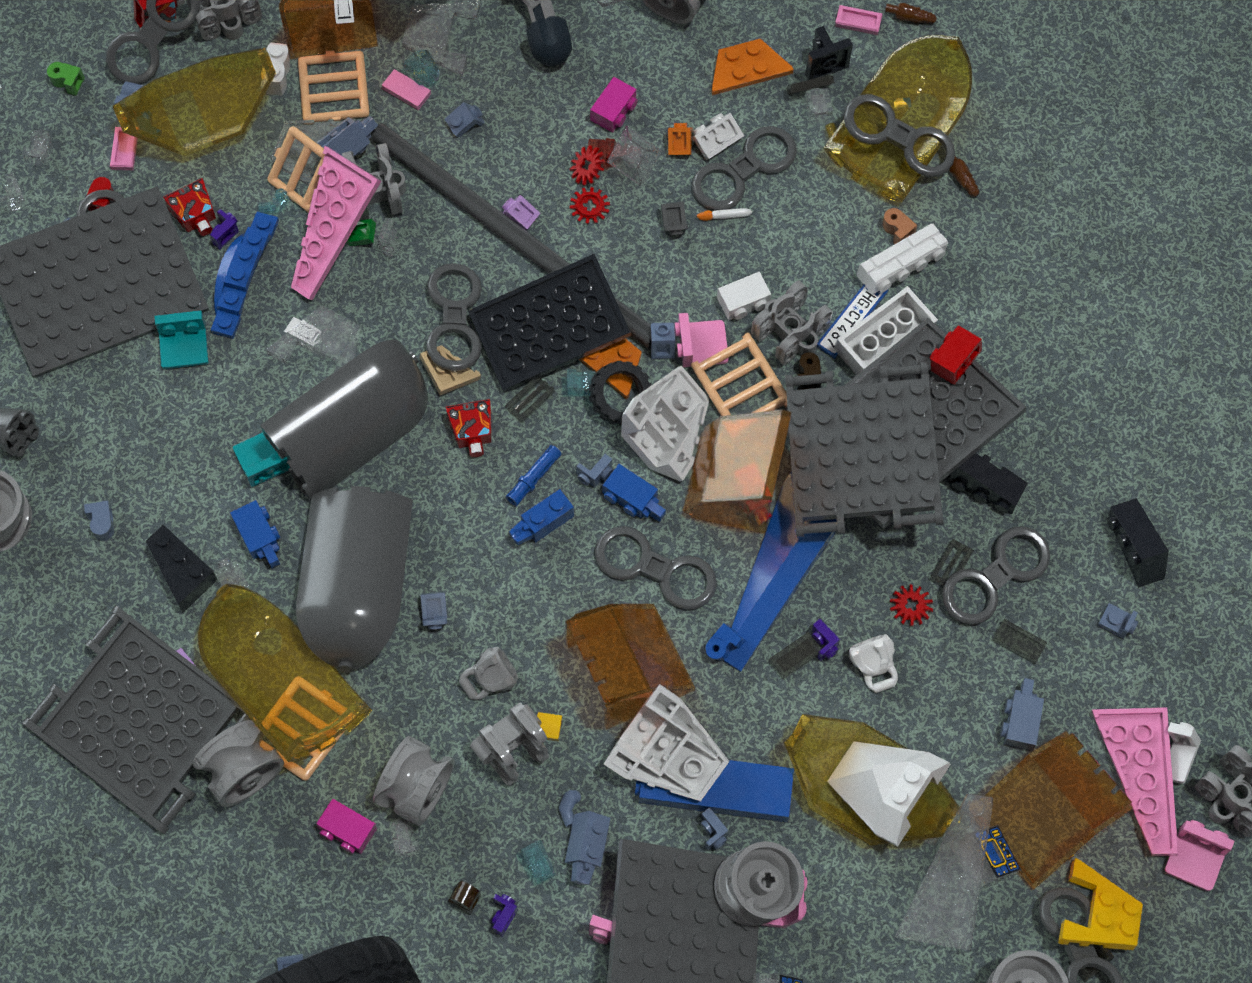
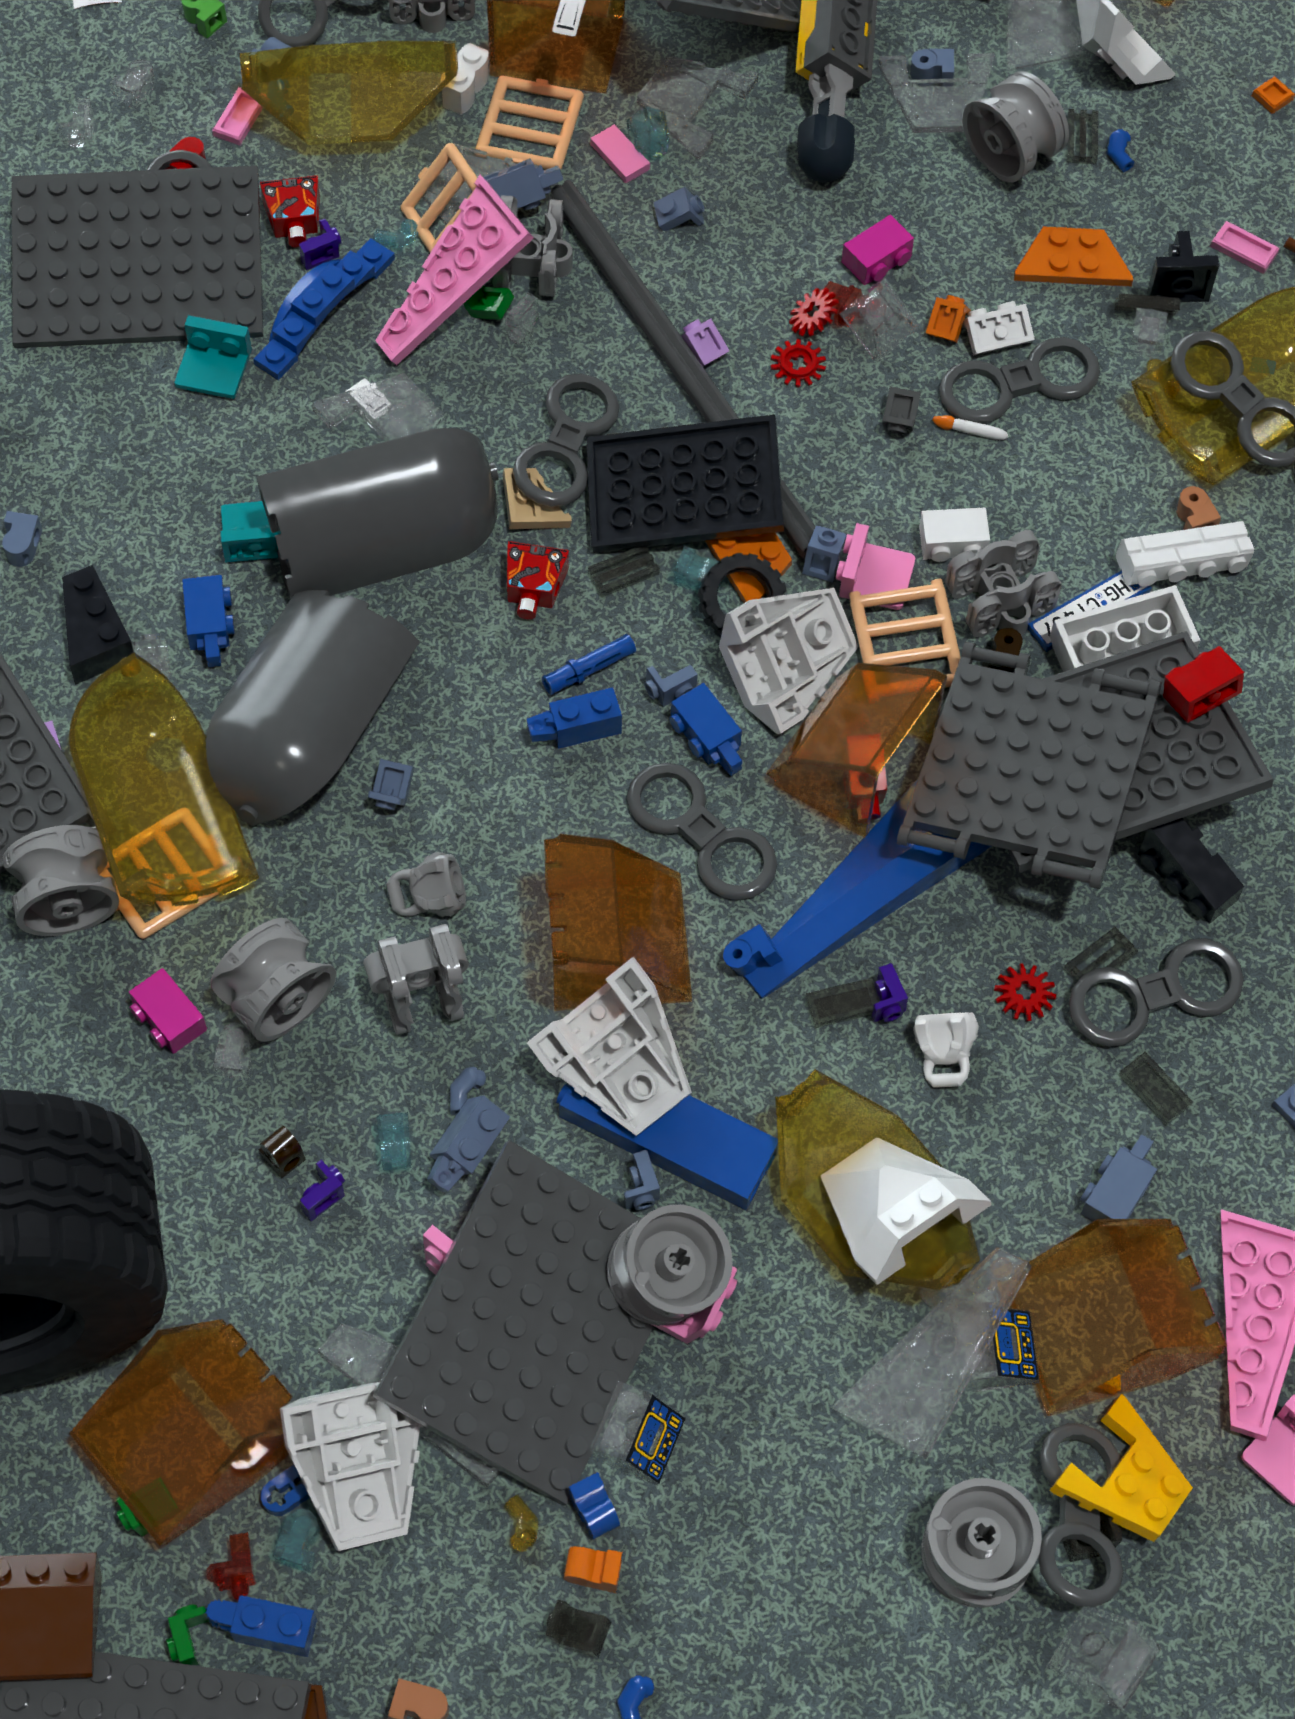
camera: 20 degrees right, 5 degrees down
(551, 725) = (480, 979): yellow tile -> none

